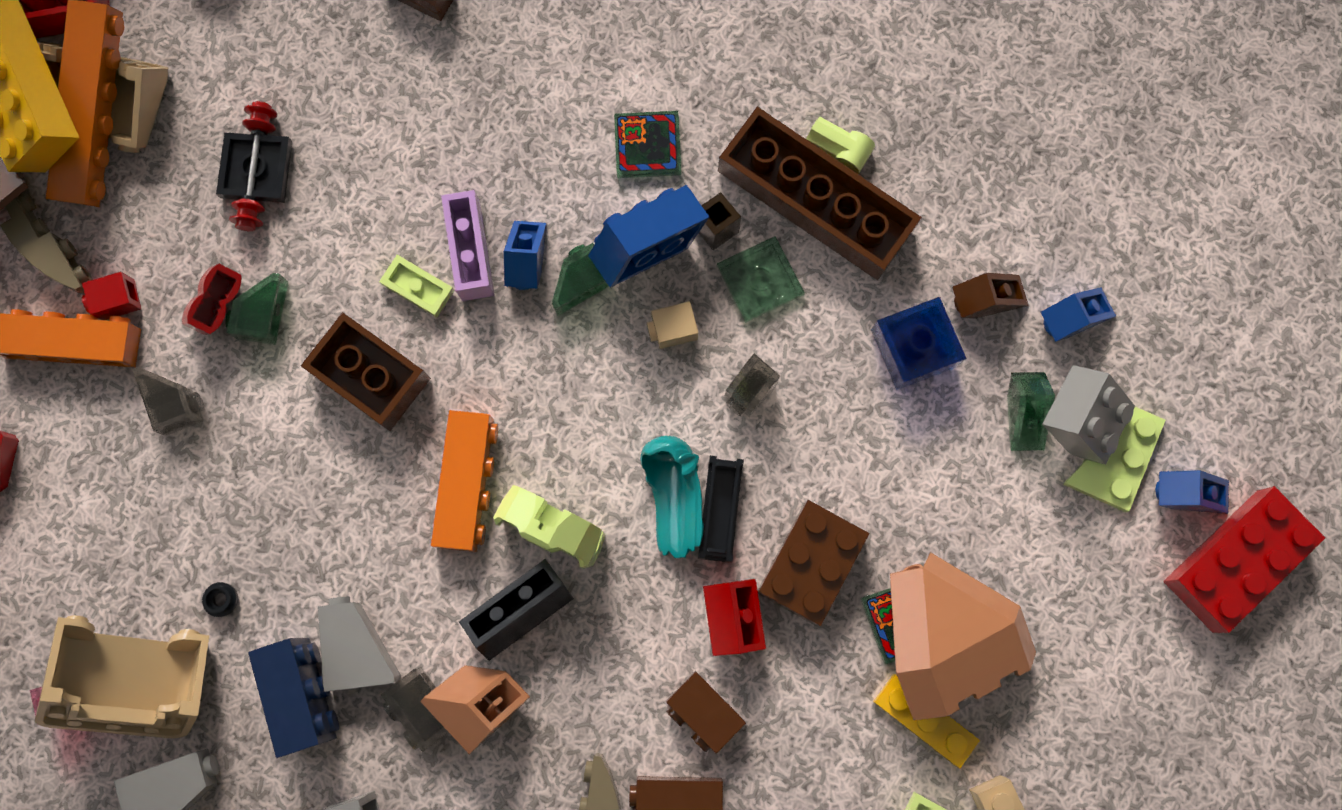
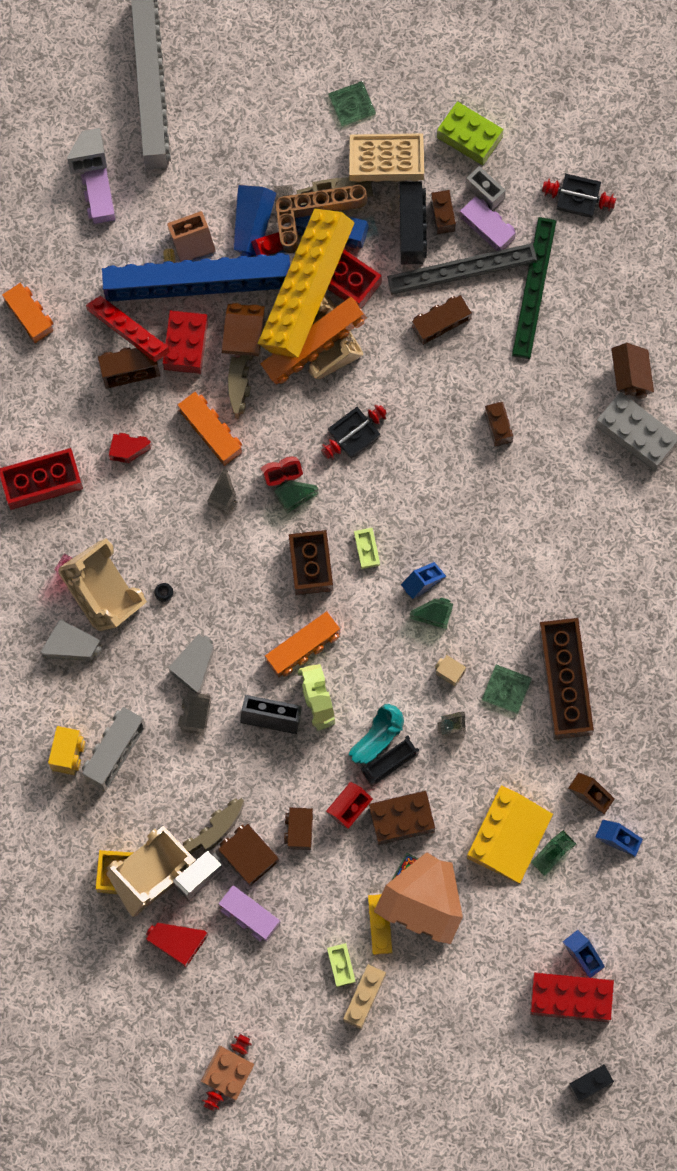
camera: 50 degrees right, 5 degrees down
(111, 296) = (244, 428): red brick -> none
(293, 695) = (156, 657): dark blue brick -> none
(467, 245) = (403, 553): lavender brick -> none
(475, 703) = (218, 732): nougat slope -> none
(647, 144) = (522, 586): tile -> none
(647, 235) = (476, 623): blue brick -> none
(722, 221) = (512, 647): dark brown brick -> none
(848, 148) = (600, 672): yellowish green piece -> none
(918, 343) = (538, 779): clear blue brick -> none
(953, 445) = (509, 834): none -> yellow slope
(1089, 414) = (572, 876): light grey brick -> none
(1122, 475) = (568, 911): yellowish green wing -> none

